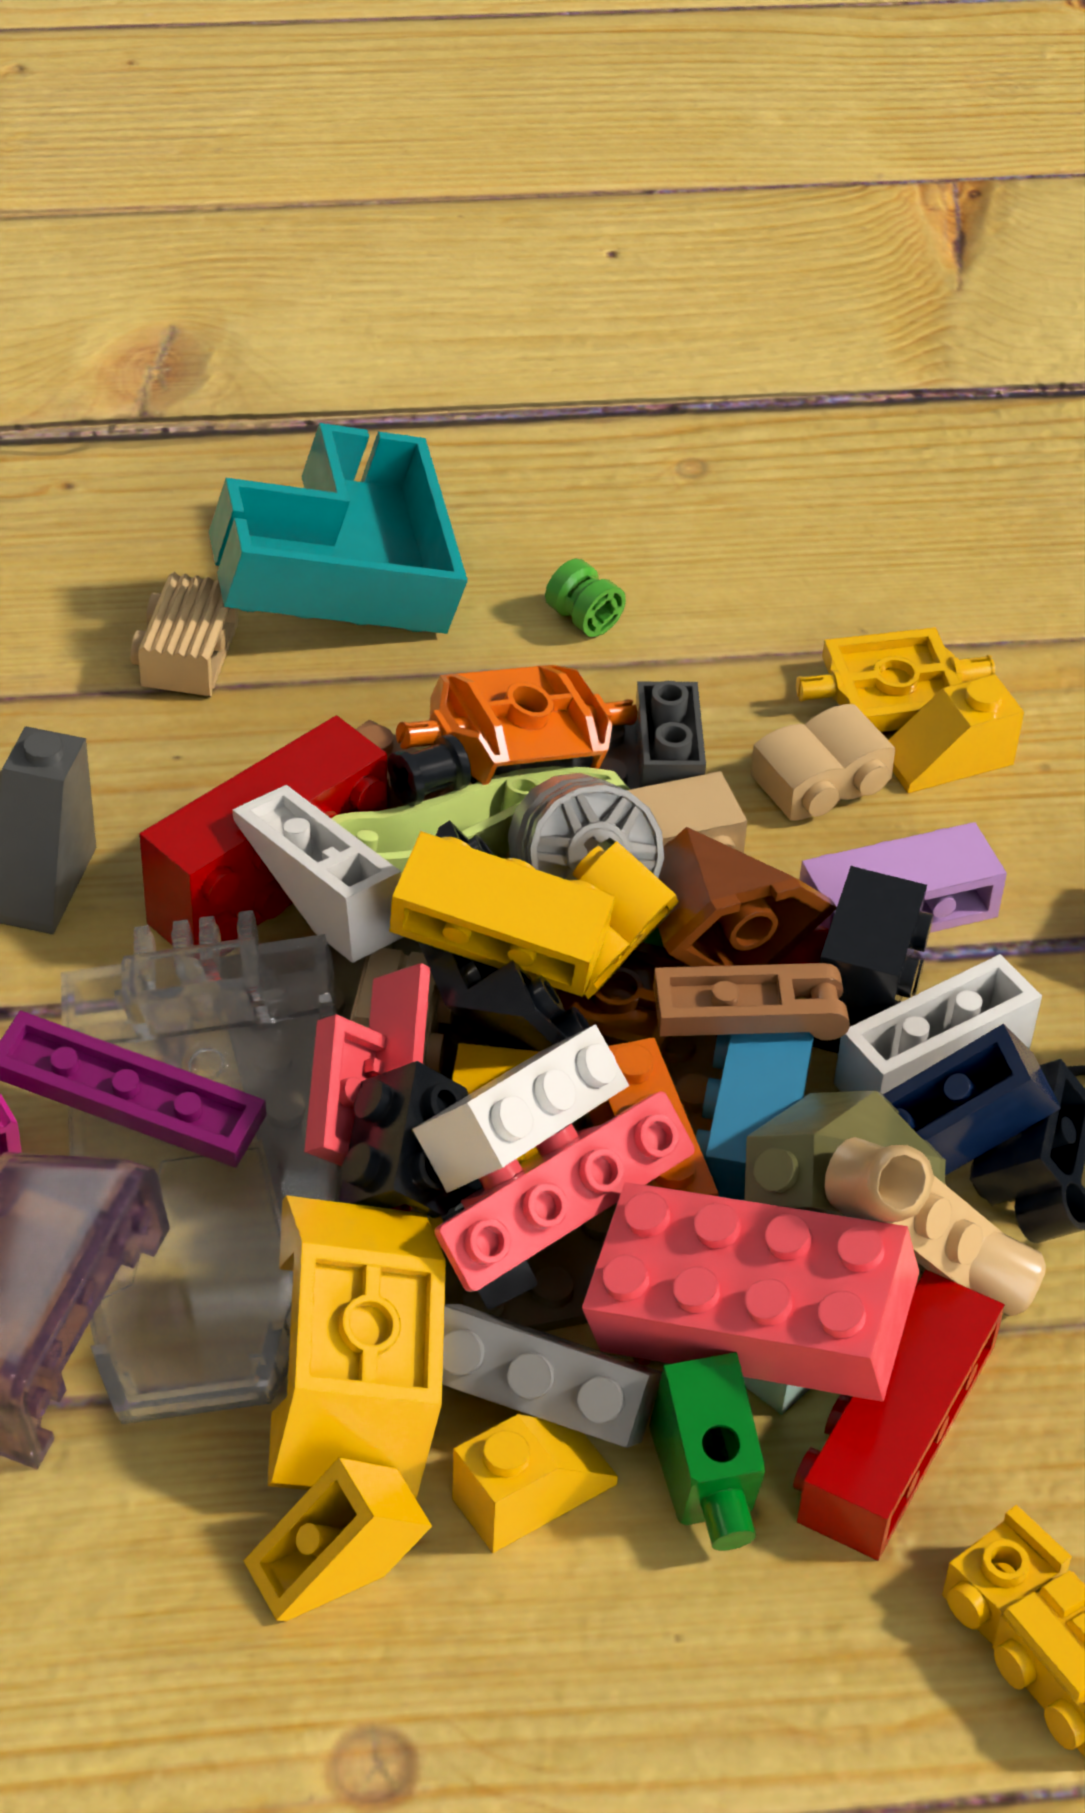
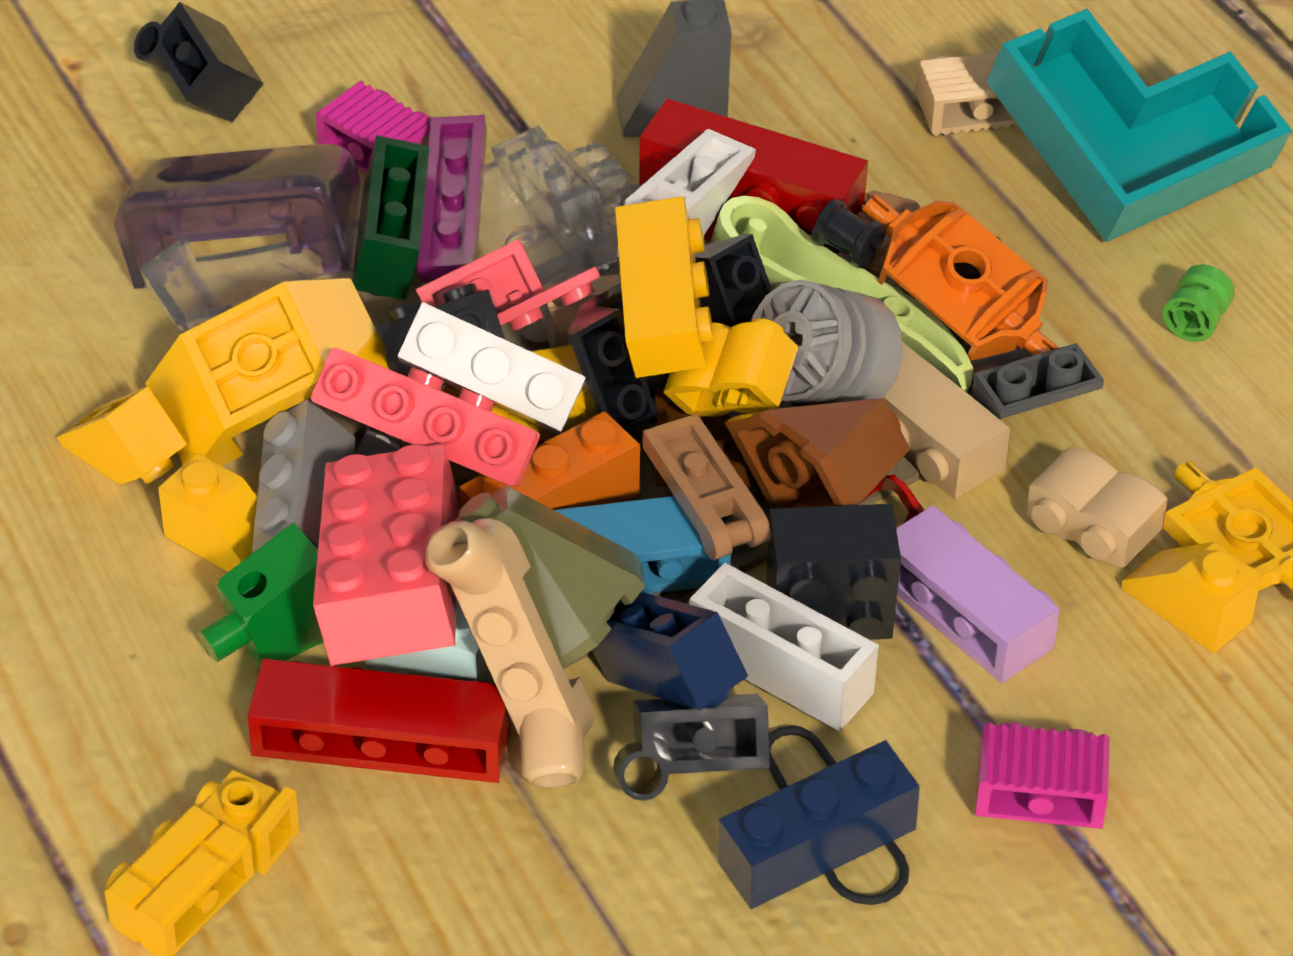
camera: 70 degrees right, 0 degrees up
(201, 1153) = (391, 218): none -> dark green brick

